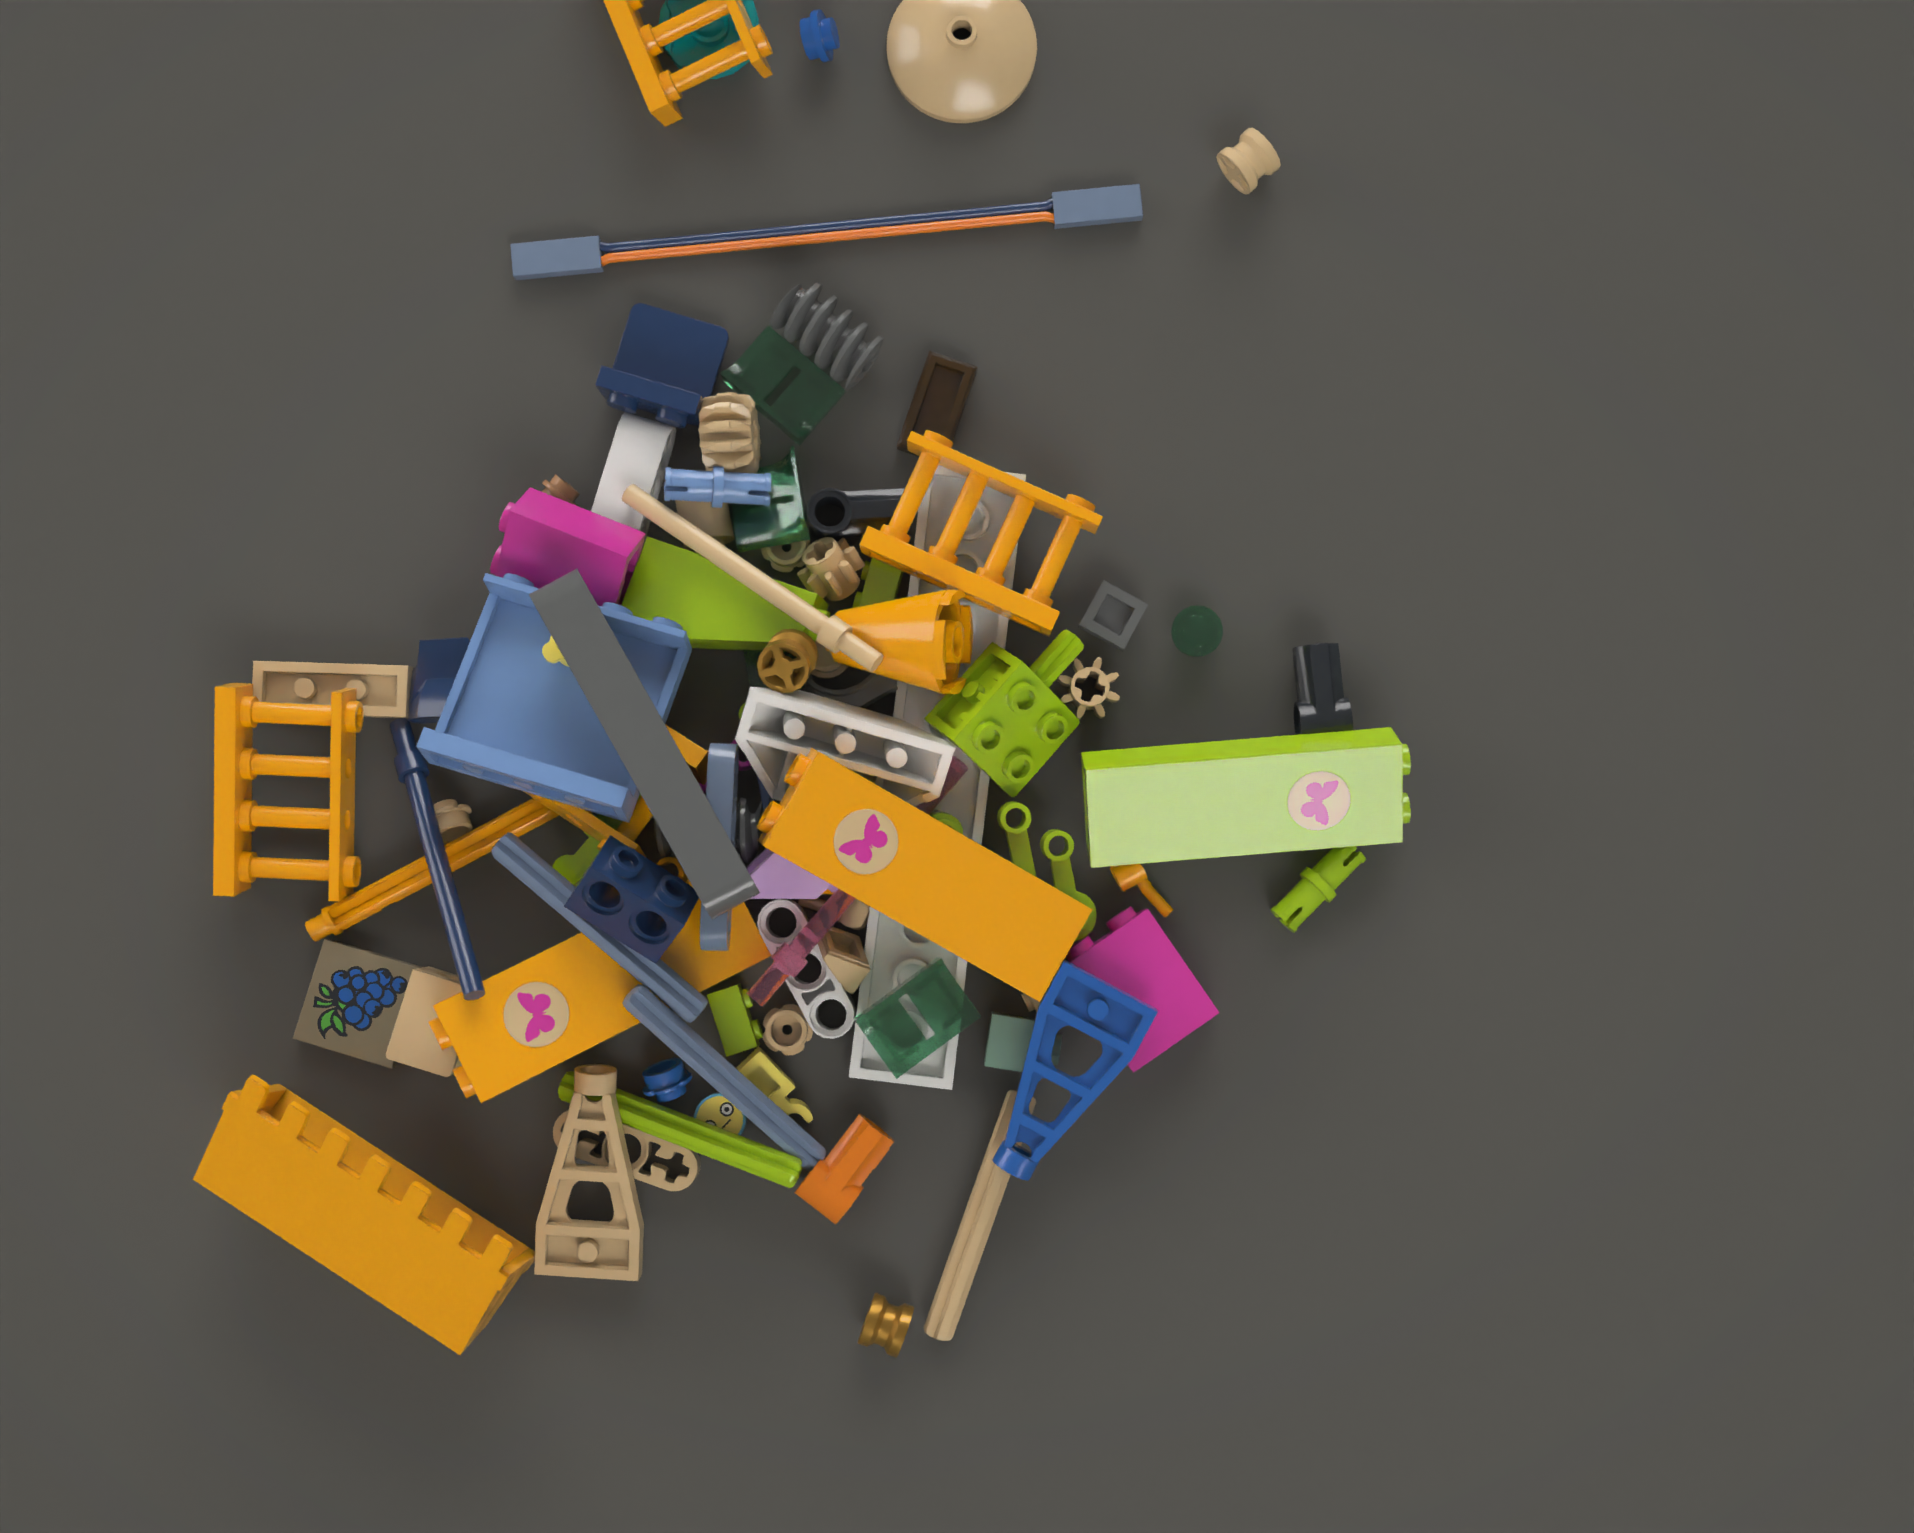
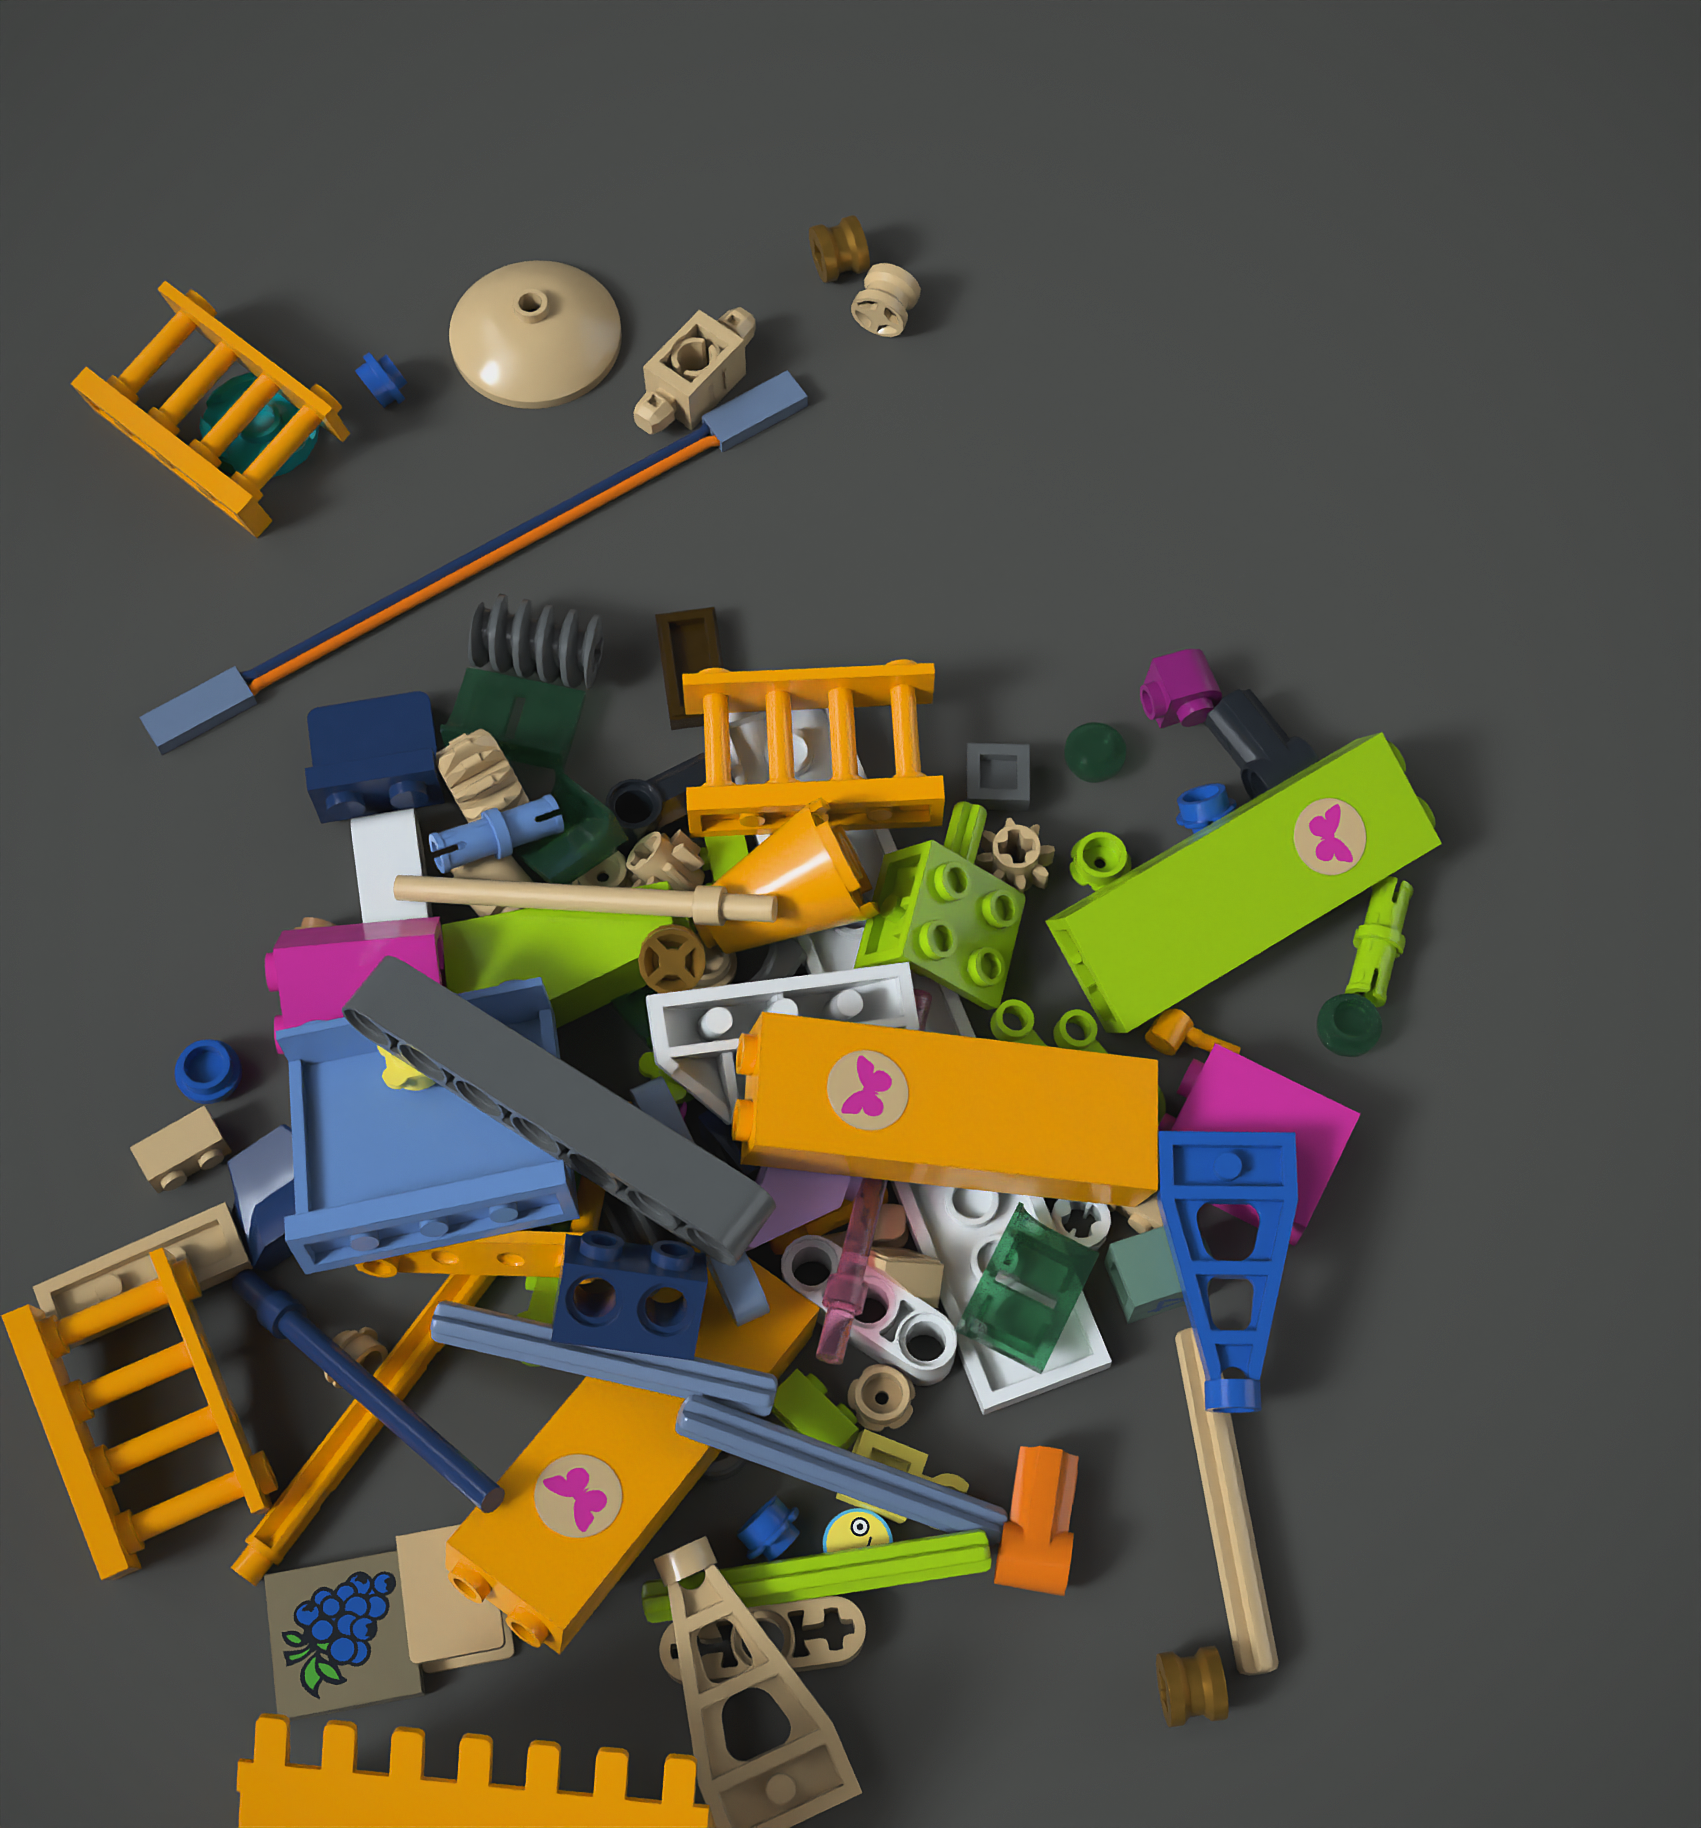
camera: 25 degrees left, 20 degrees down
(396, 607) = (181, 1150): none -> tan piece
(440, 556) = (208, 1071): none -> blue plate
(995, 992) = (1098, 1230): none -> white bush
(1070, 129) = (694, 345): none -> tan piece
(1164, 715) = (1094, 847): none -> lime plate
(1237, 94) = (839, 248): none -> pearl gold wheel
(1250, 718) = (1203, 806): none -> blue plate
(1258, 934) = (1349, 1025): none -> clear green plate
(1287, 616) = (1180, 689): none -> magenta plate

